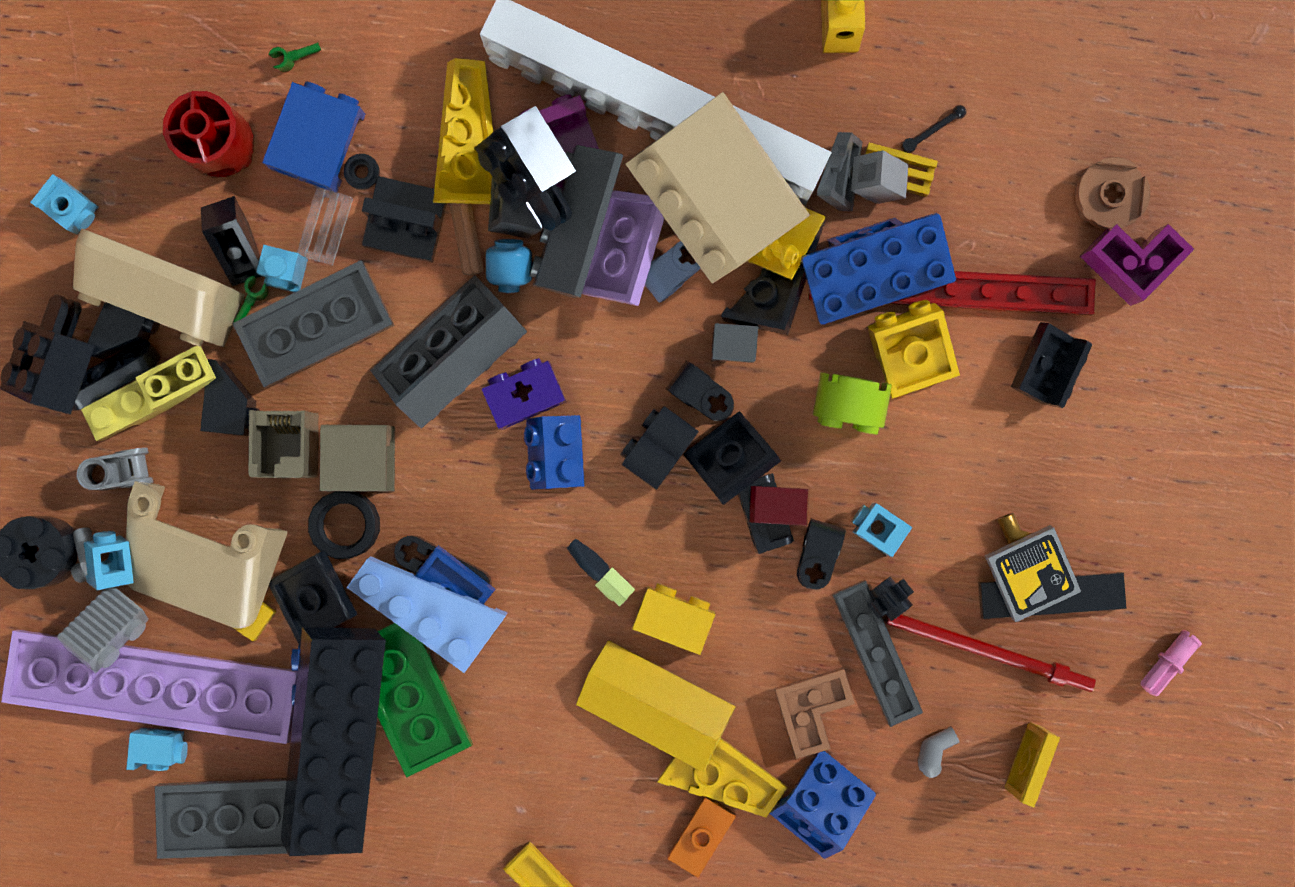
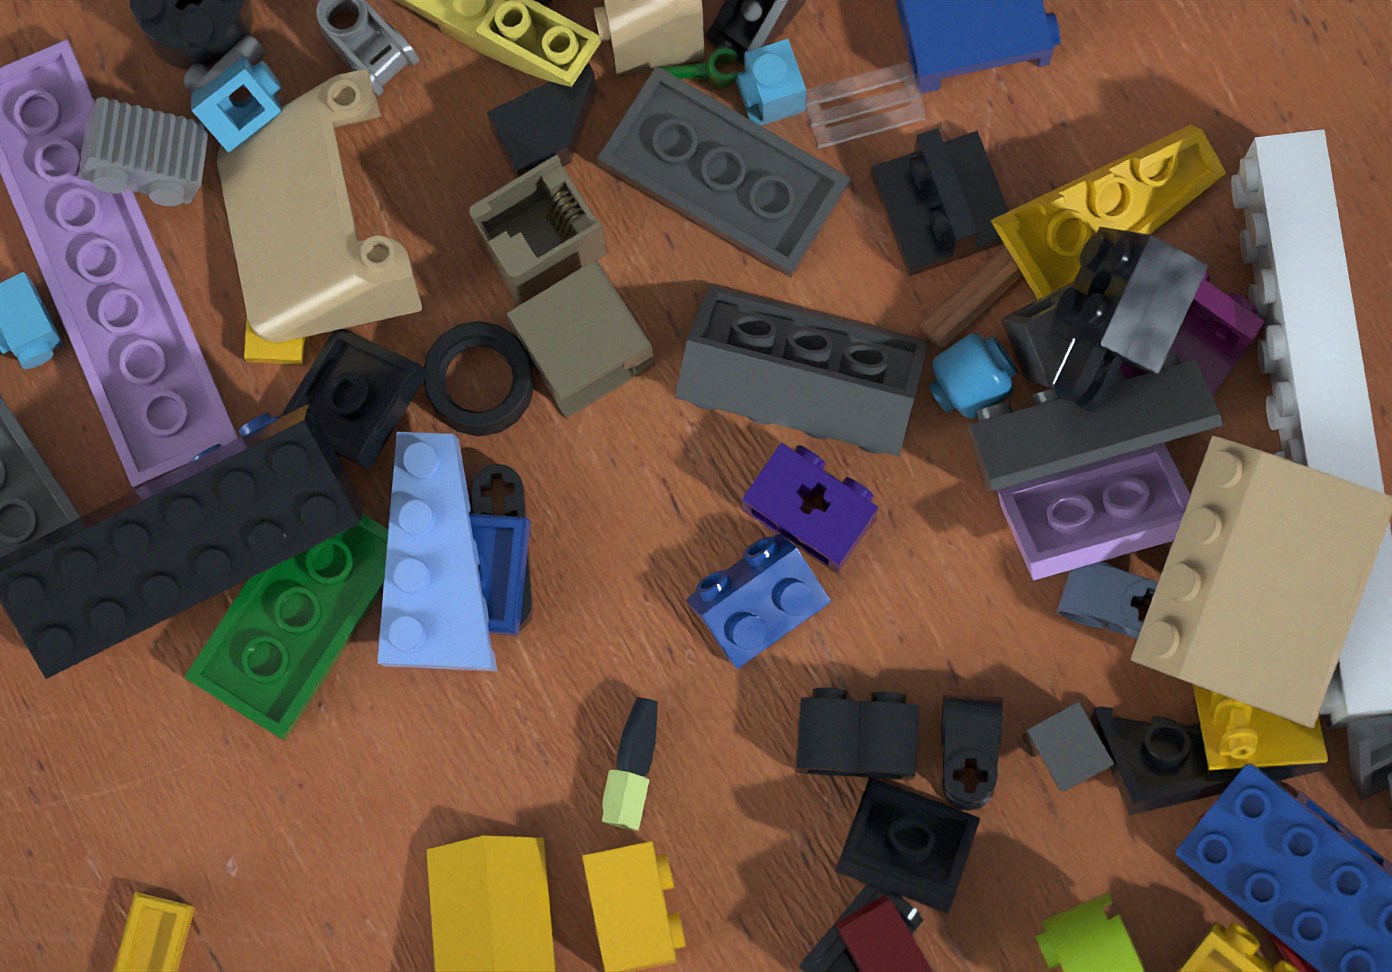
camera: 60 degrees right, 10 degrees down
(354, 164) = (974, 91): black plate -> none

